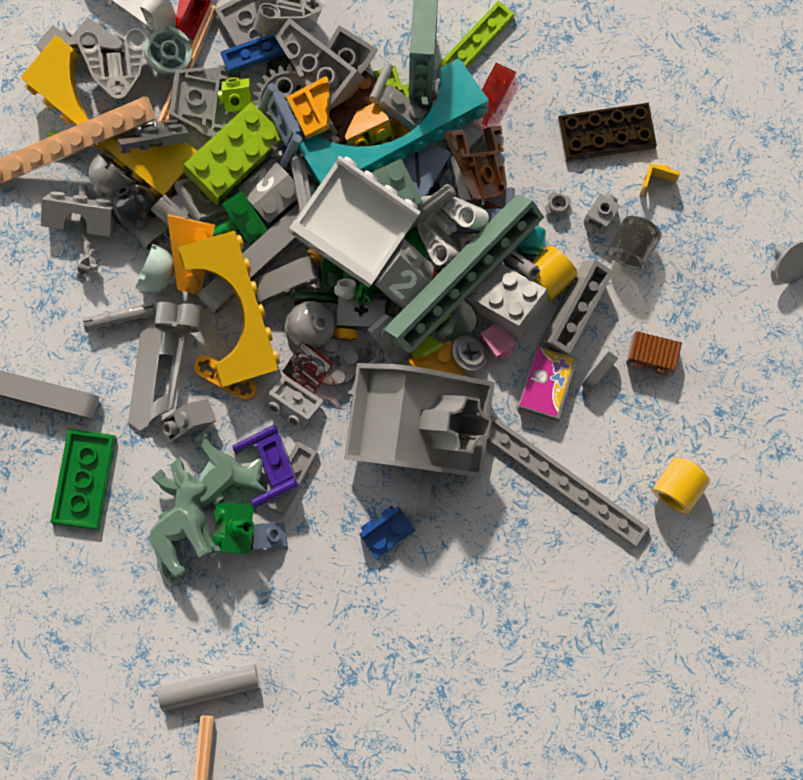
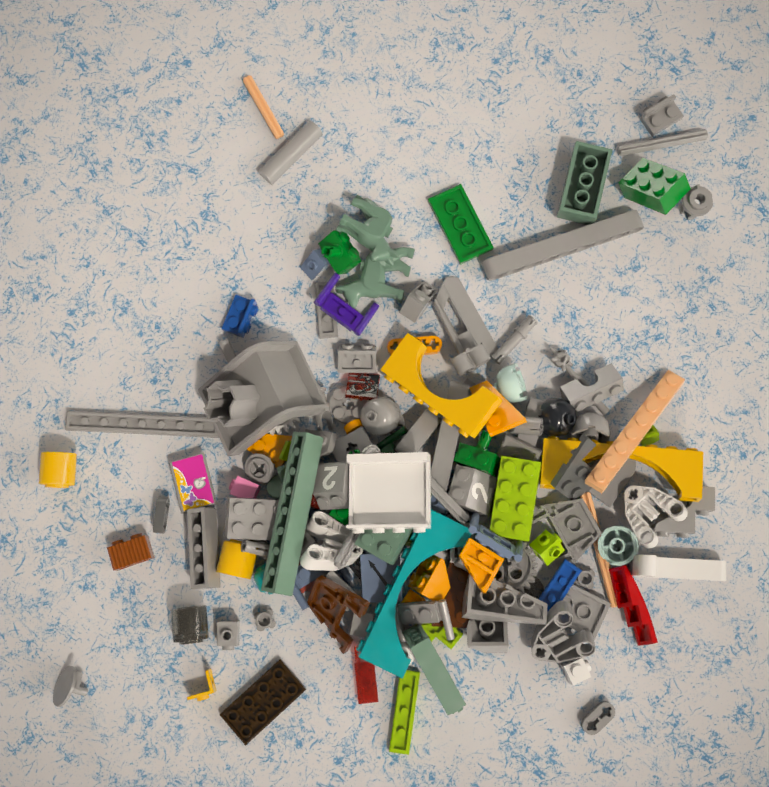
camera: 145 degrees right, 0 degrees up
(217, 44) = (588, 583): none -> light grey plate

